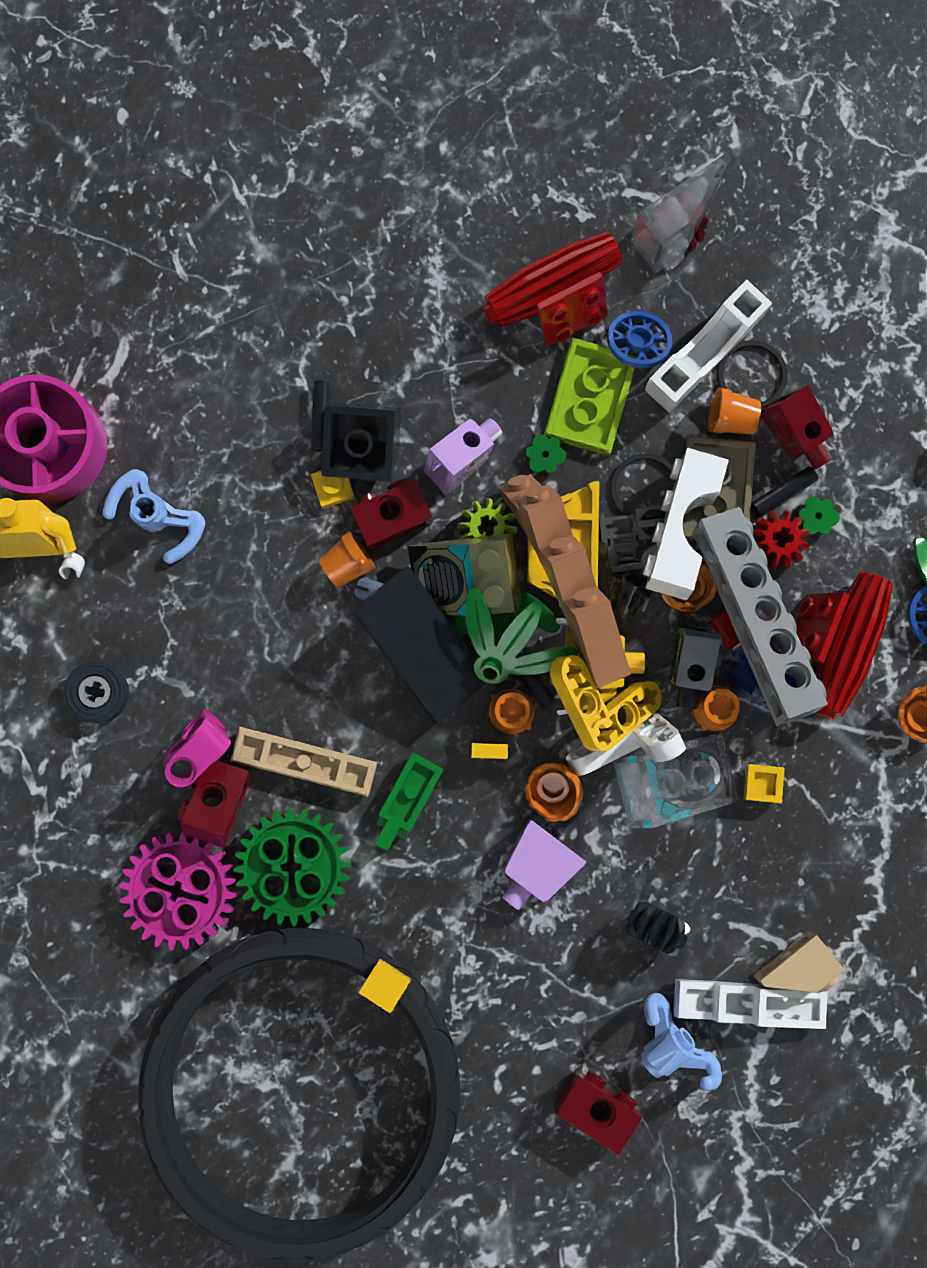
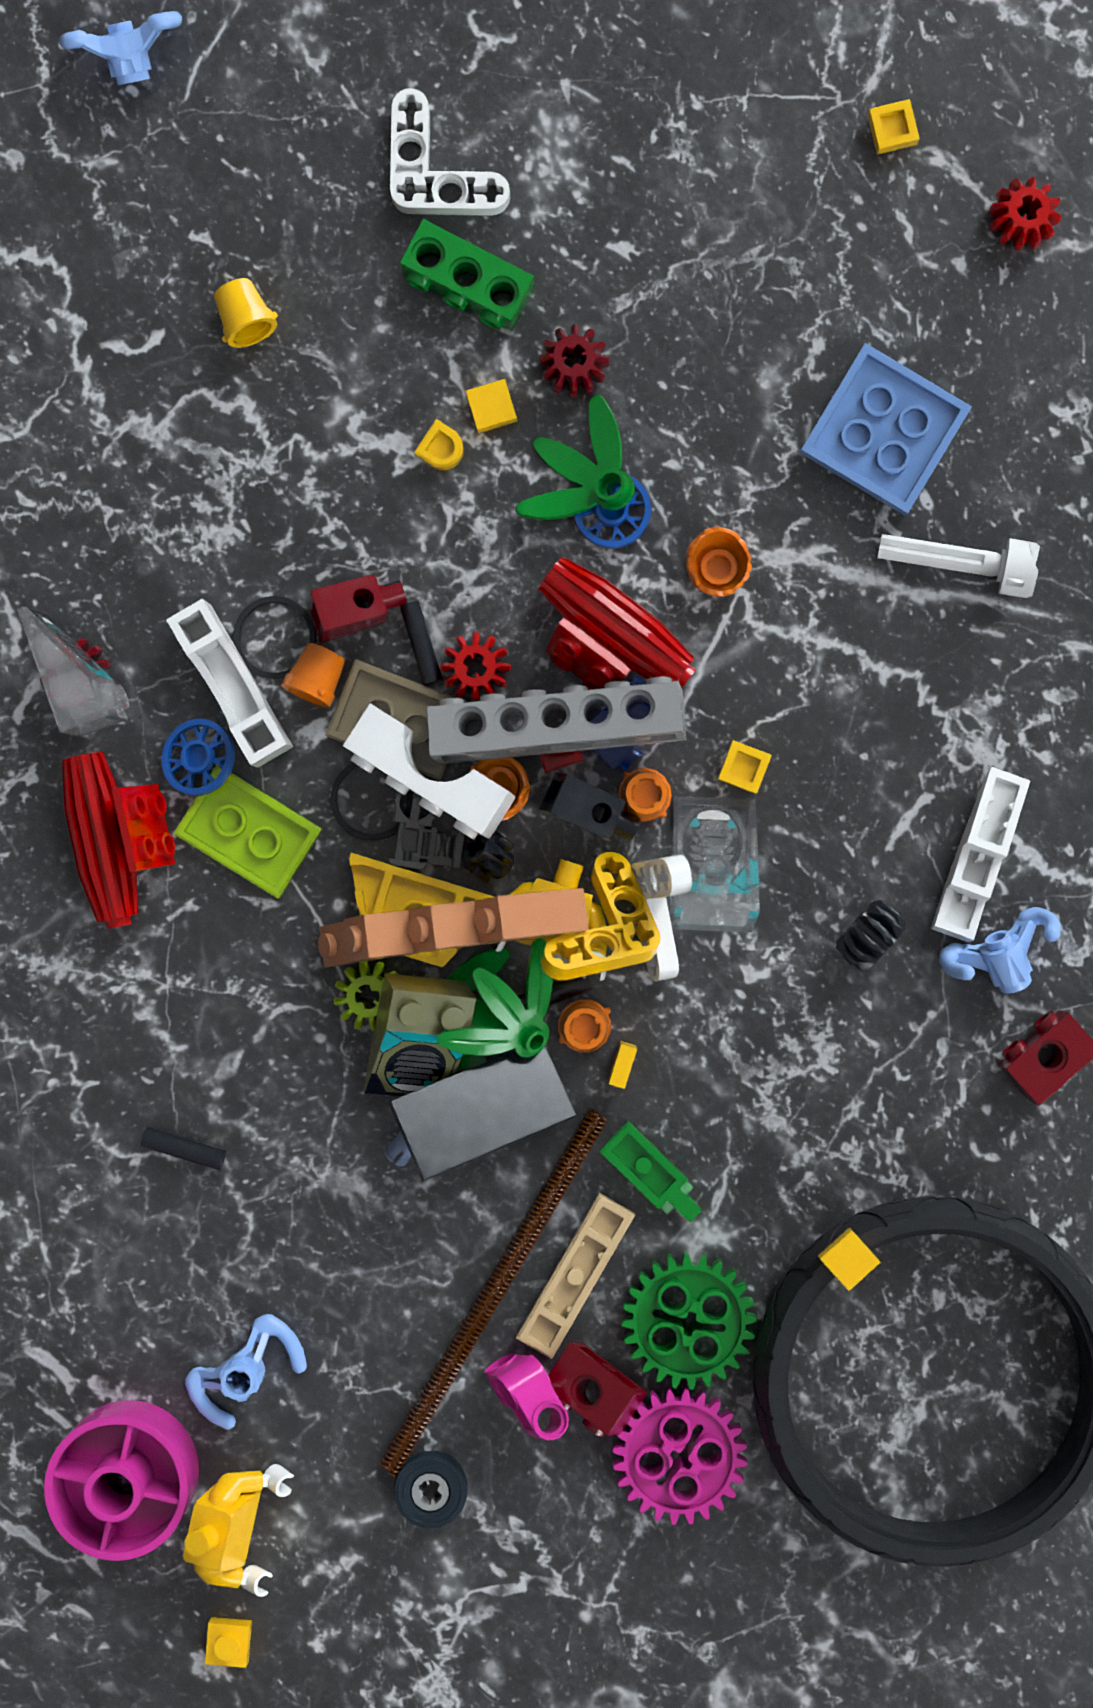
camera: 80 degrees left, 5 degrees up
(272, 699) = (494, 1293): none -> reddish brown axle
(332, 489) = (269, 1156): yellow plate -> none
(346, 561) = (361, 1166): orange piece -> none
(360, 441) = (227, 1112): black slope -> none
(412, 517) = (330, 1076): dark red brick -> none
(461, 454) = (284, 1014): lavender torso -> none
(538, 866) = (765, 1045): lavender torso -> none
(552, 447) = (289, 906): green plant -> none
(554, 791) = (688, 1005): orange hair -> none
(802, 967) = (957, 787): tan slope -> none
(828, 516) = (464, 601): green plant -> none

